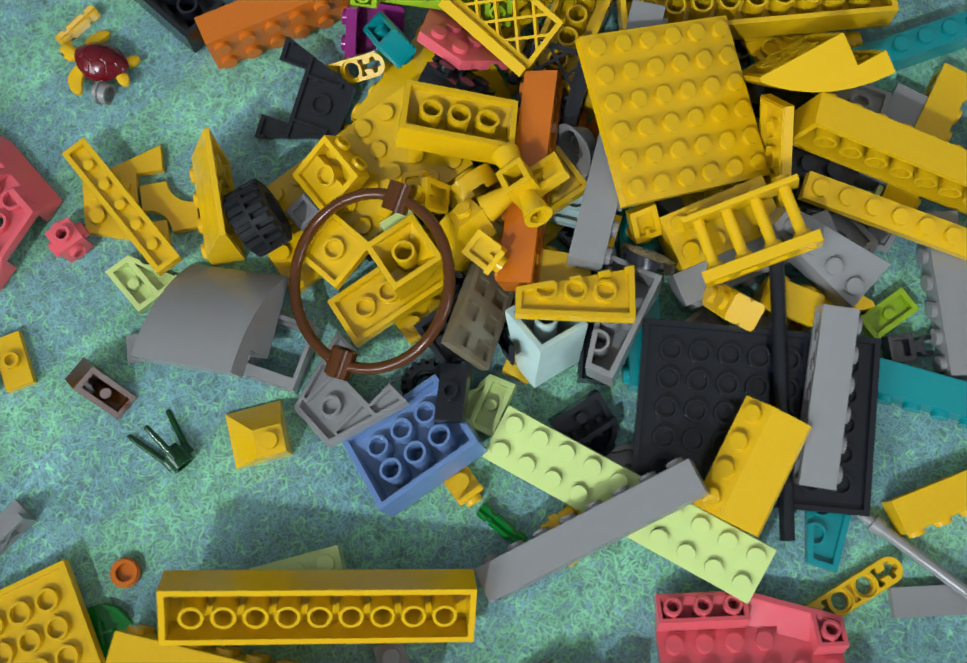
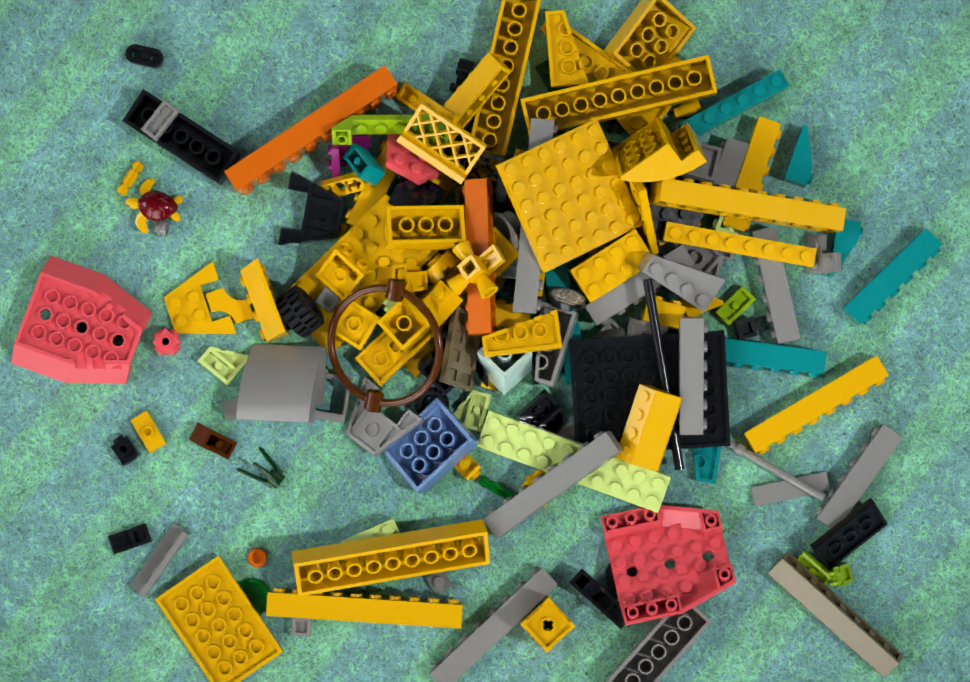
camera: 10 degrees left, 10 degrees up
(122, 207) = (199, 313): yellow plate -> none
(258, 434) = (324, 454): yellow slope -> none
(453, 393) = (451, 410): black plate -> none
(485, 252) = (459, 317): yellow bracket -> none
(643, 223) = (561, 275): yellow bracket -> none
(733, 306) = (625, 323): yellow brick -> none
(774, 249) = (644, 287): yellow fence -> none
(848, 586) = (724, 491): yellow beam -> none

